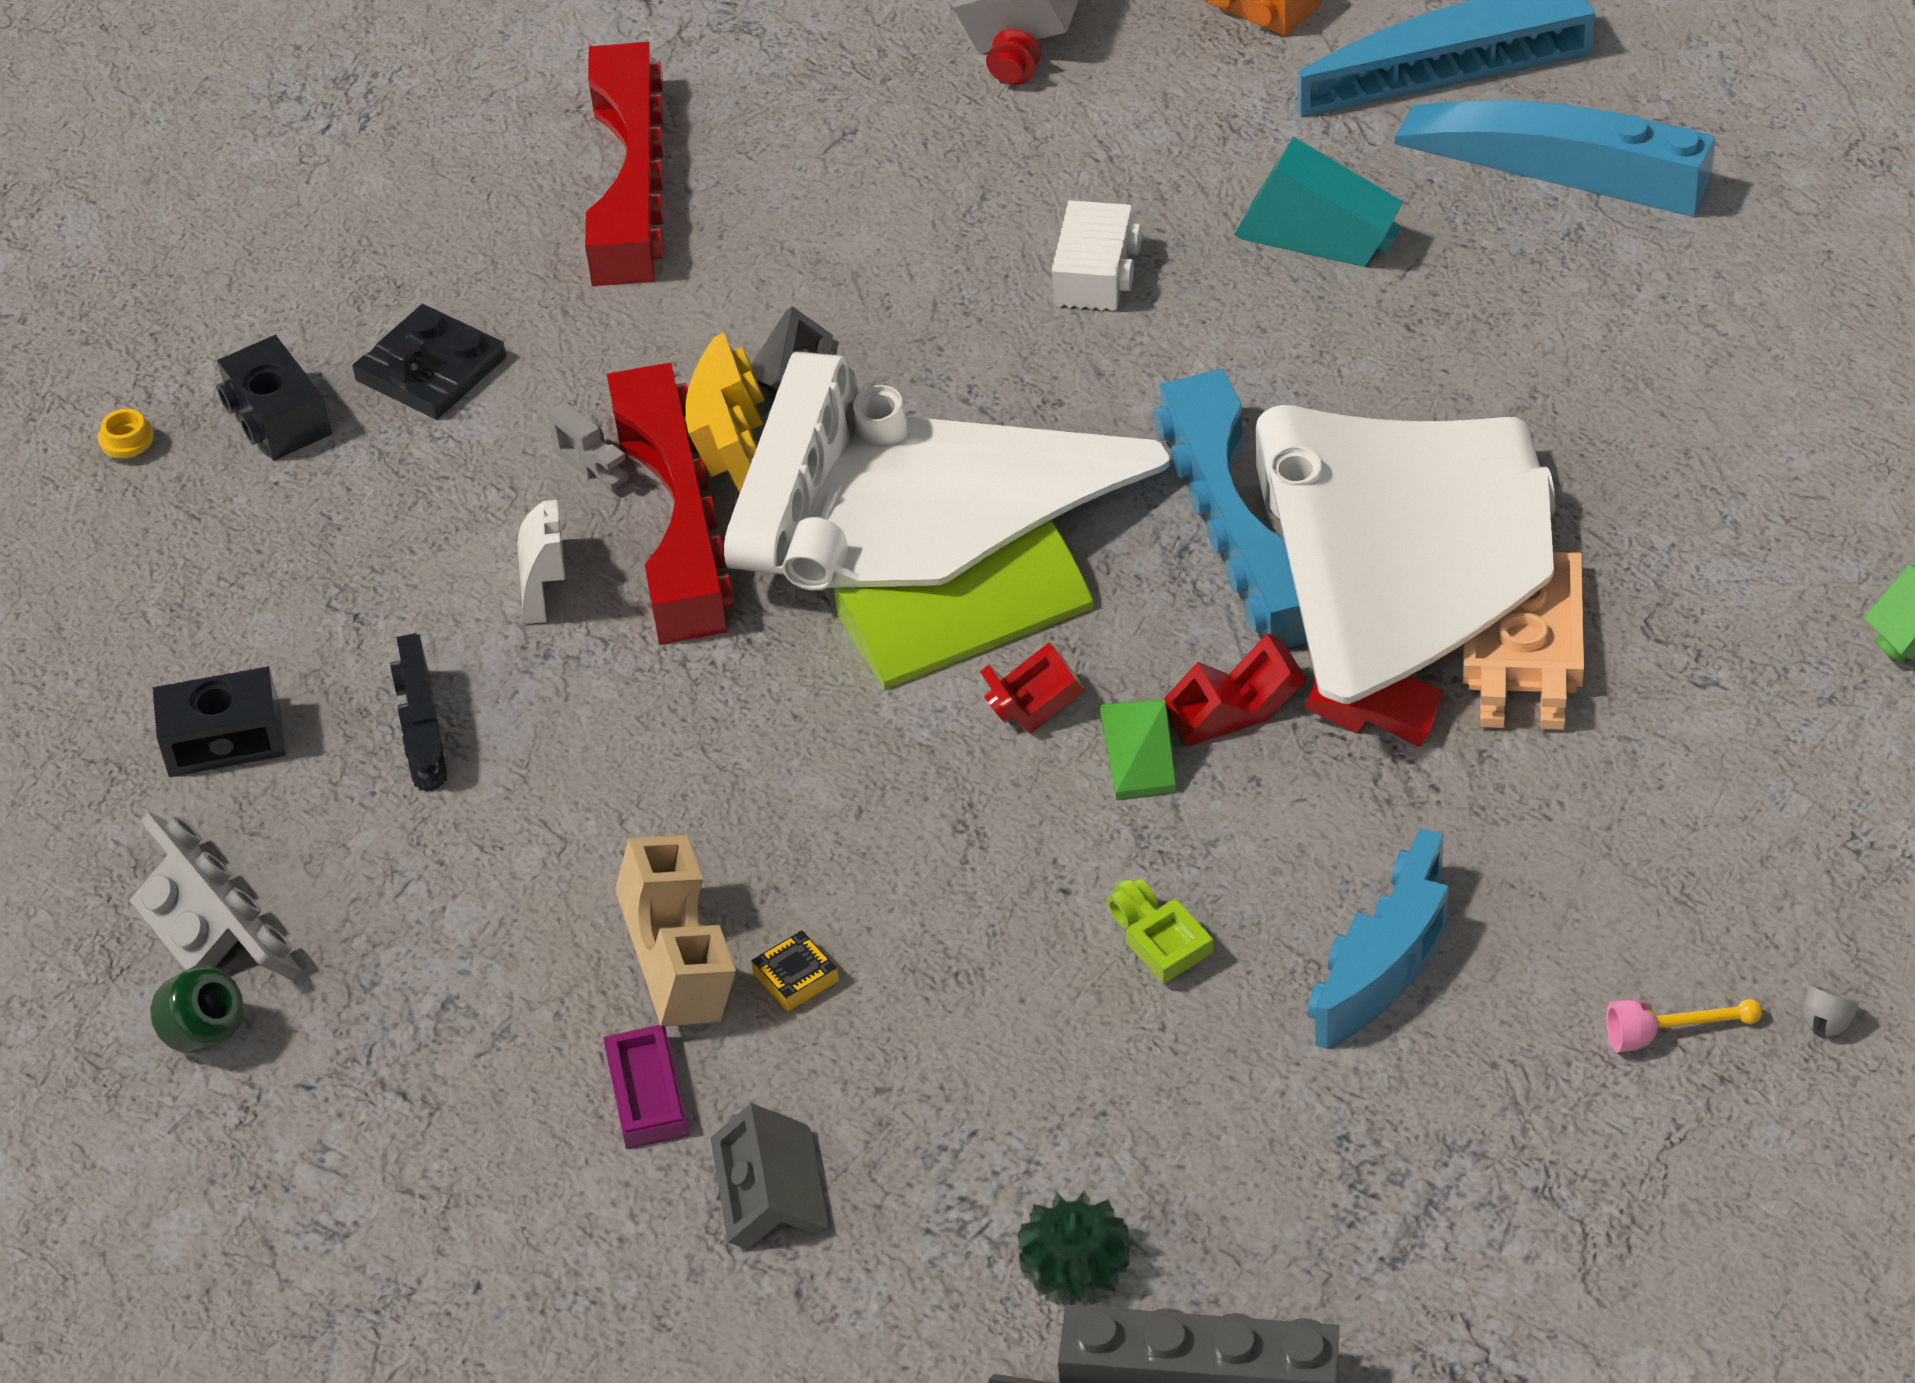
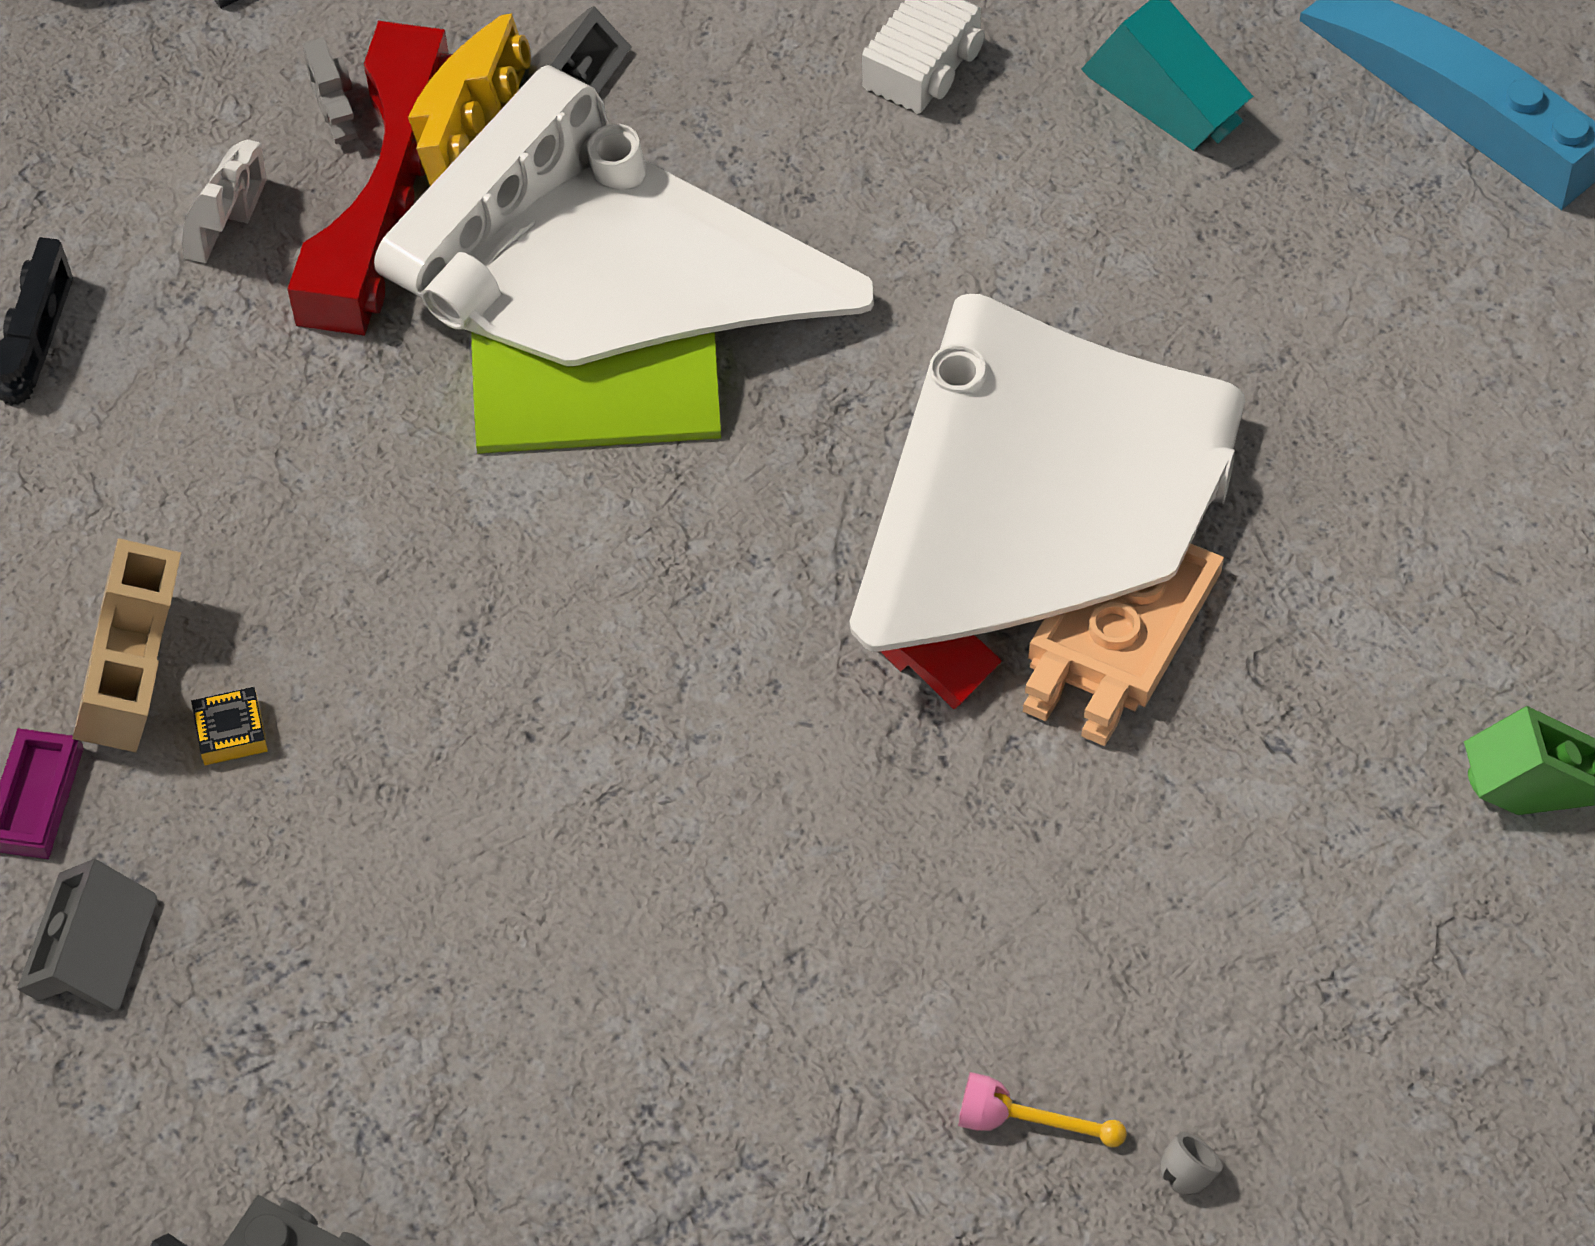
camera: 20 degrees right, 10 degrees up
(1033, 689) = (603, 510): red bracket -> none
(1074, 1248) = (321, 1151): clear green gear -> none
(1138, 747) = (677, 608): bright green slope -> none
(1162, 937) = (587, 827): lime plate -> none
(1205, 433) = (925, 279): dark azure arch -> none
(1218, 703) = (783, 589): red slope -> none
(1385, 950) = (777, 934): dark azure slope -> none

